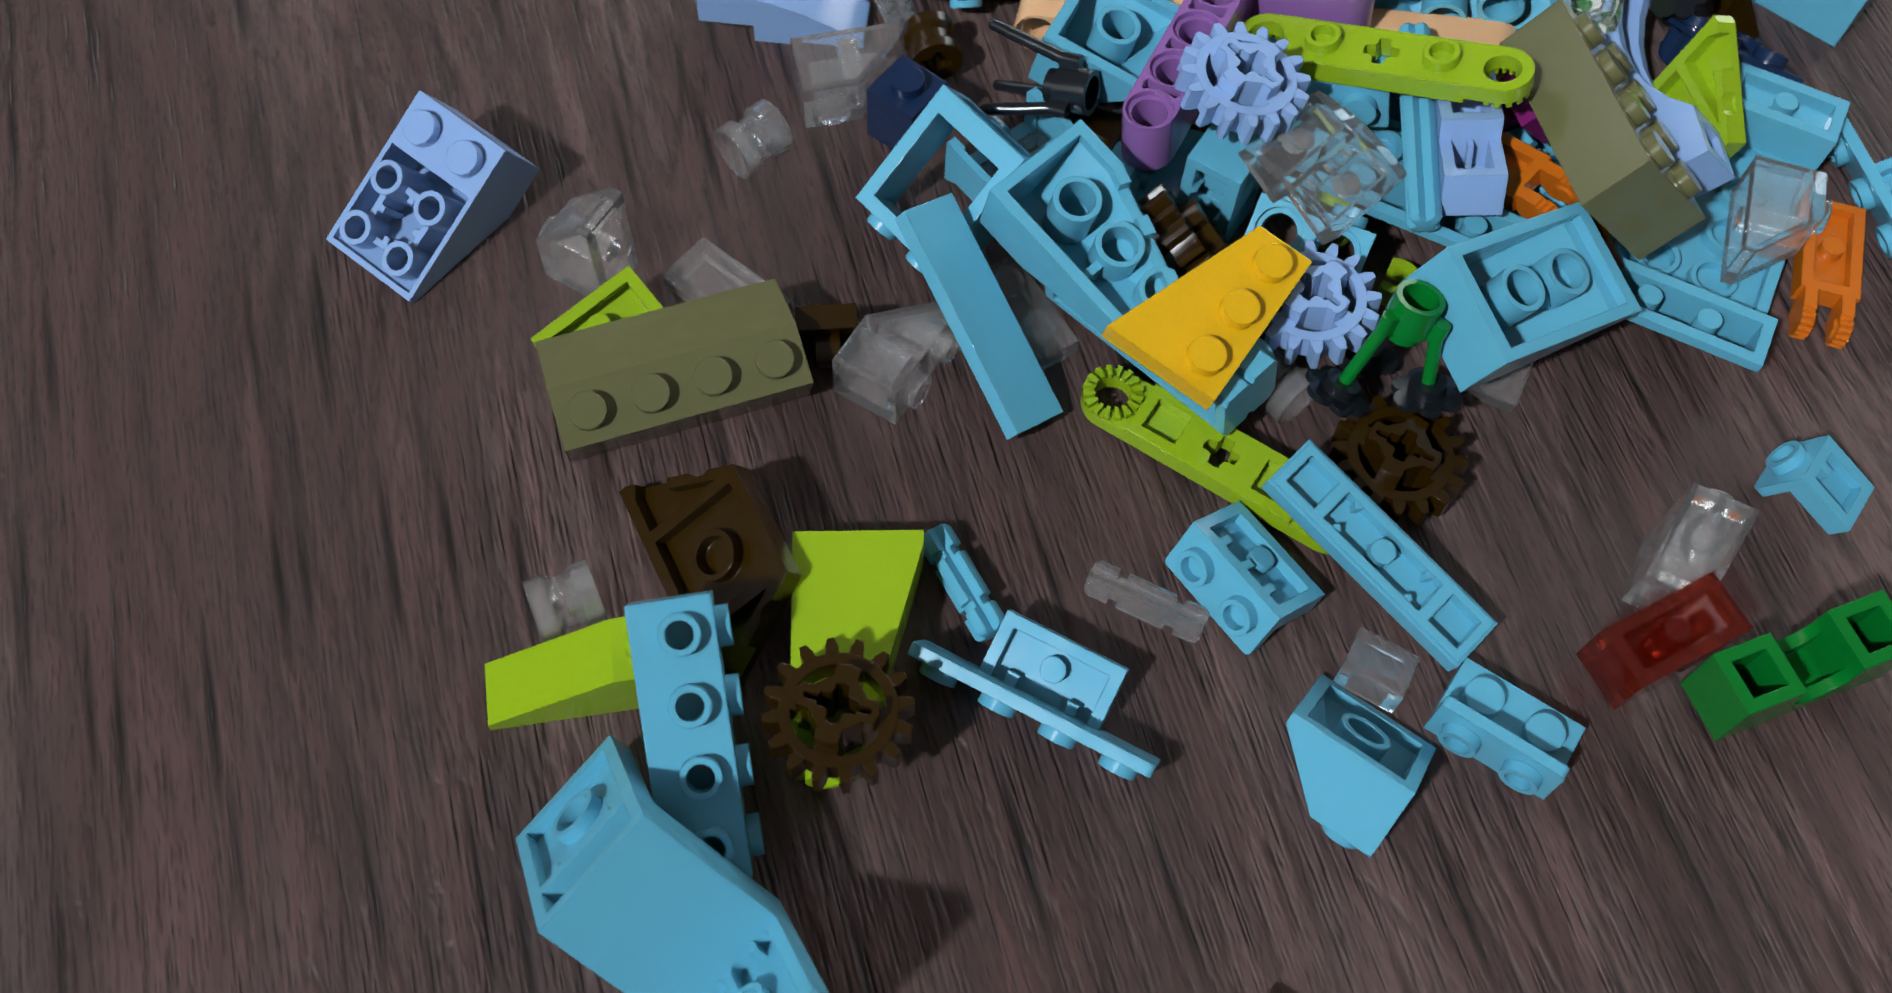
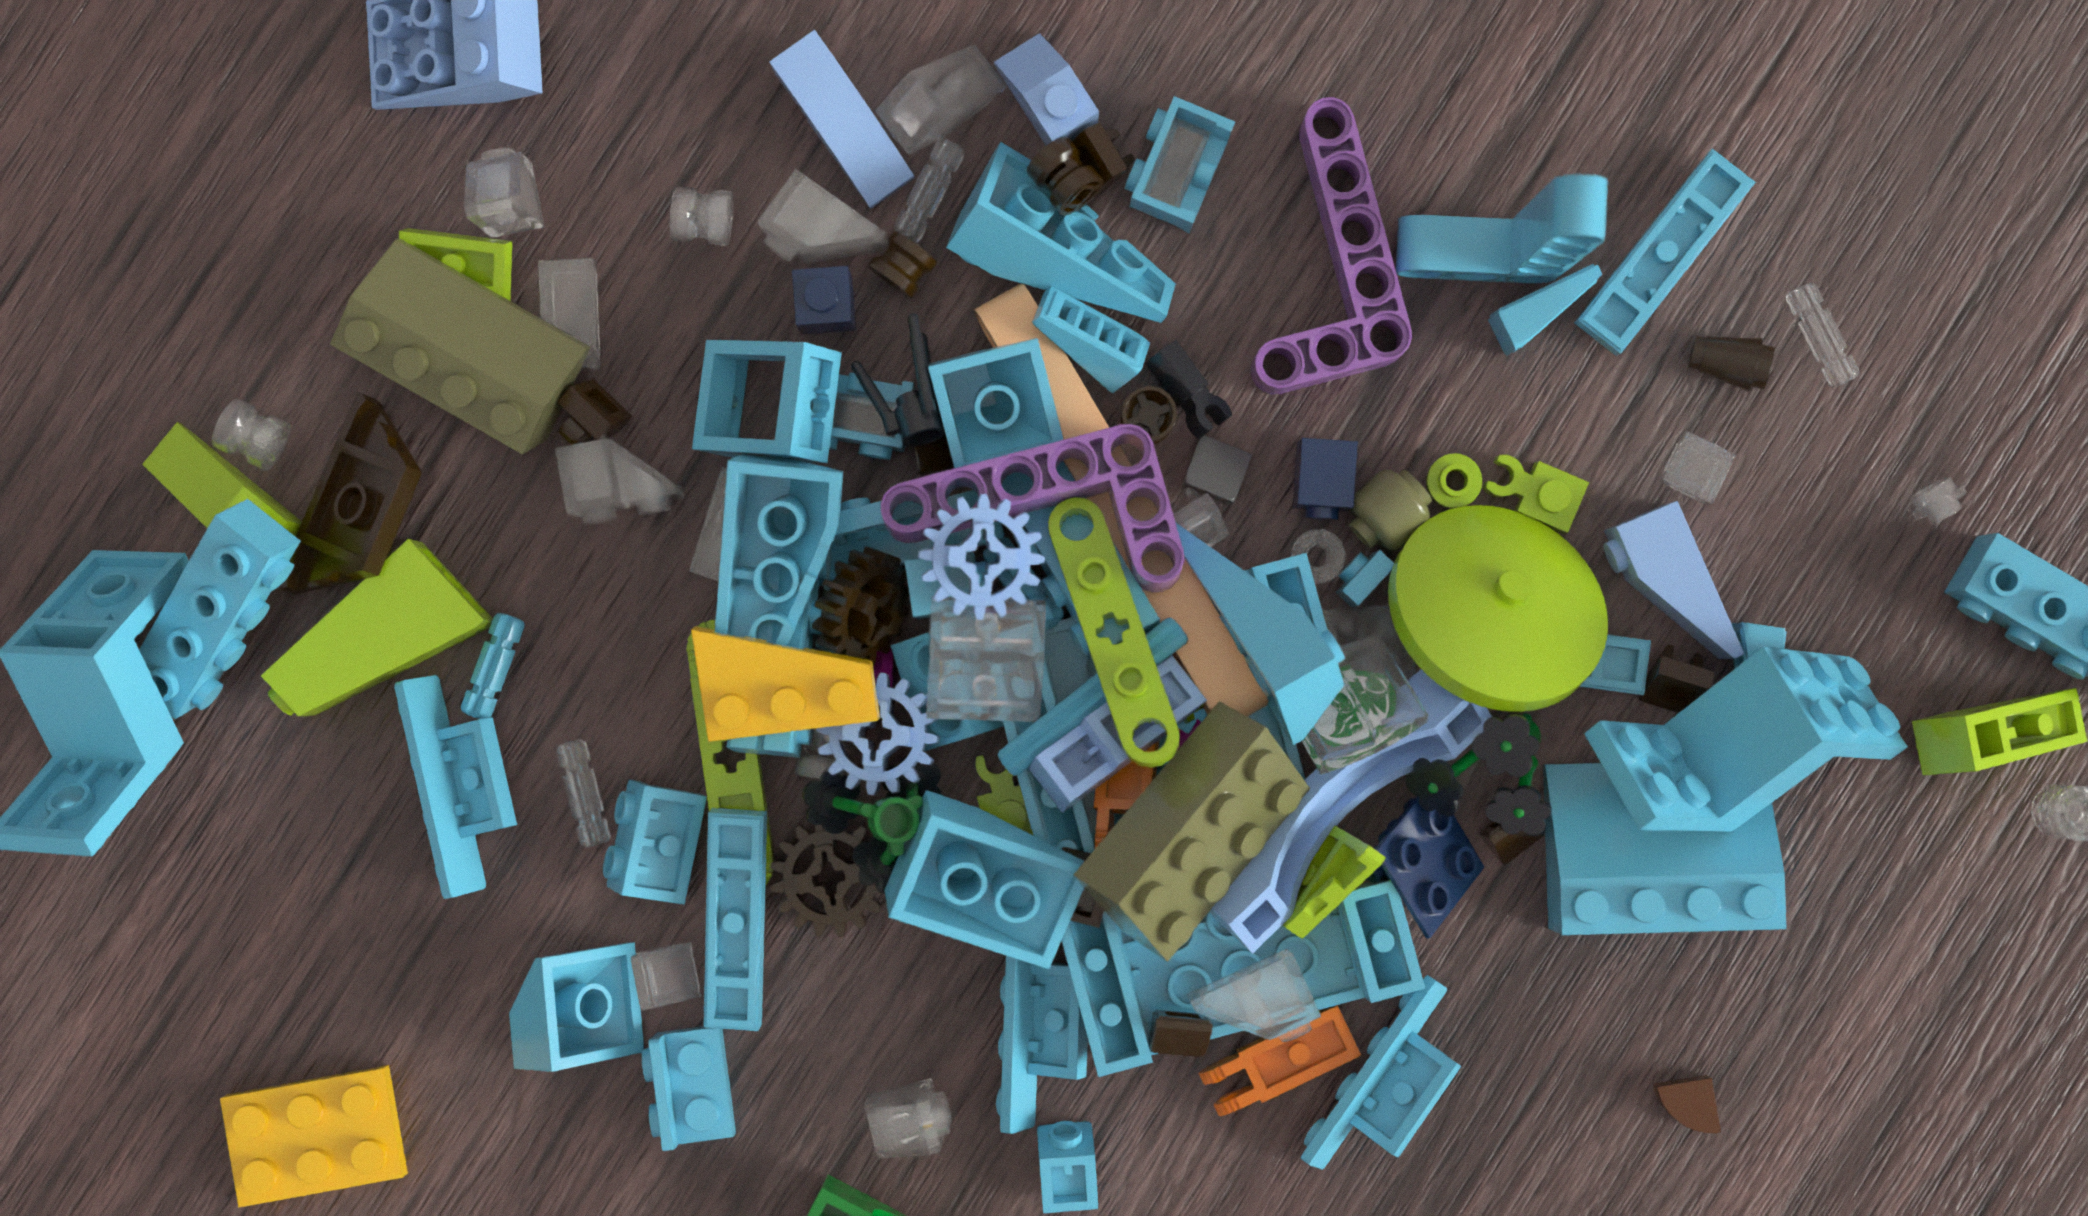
camera: 50 degrees right, 25 degrees up
(813, 703) = (285, 668): dark brown gear -> none
(978, 315) = (675, 513): medium azure tile -> none
(1663, 640) = (822, 1147): clear red slope -> none
(1667, 399) = (1039, 1037): none -> medium azure bracket
(1765, 285) = (1179, 1033): none -> dark brown slope

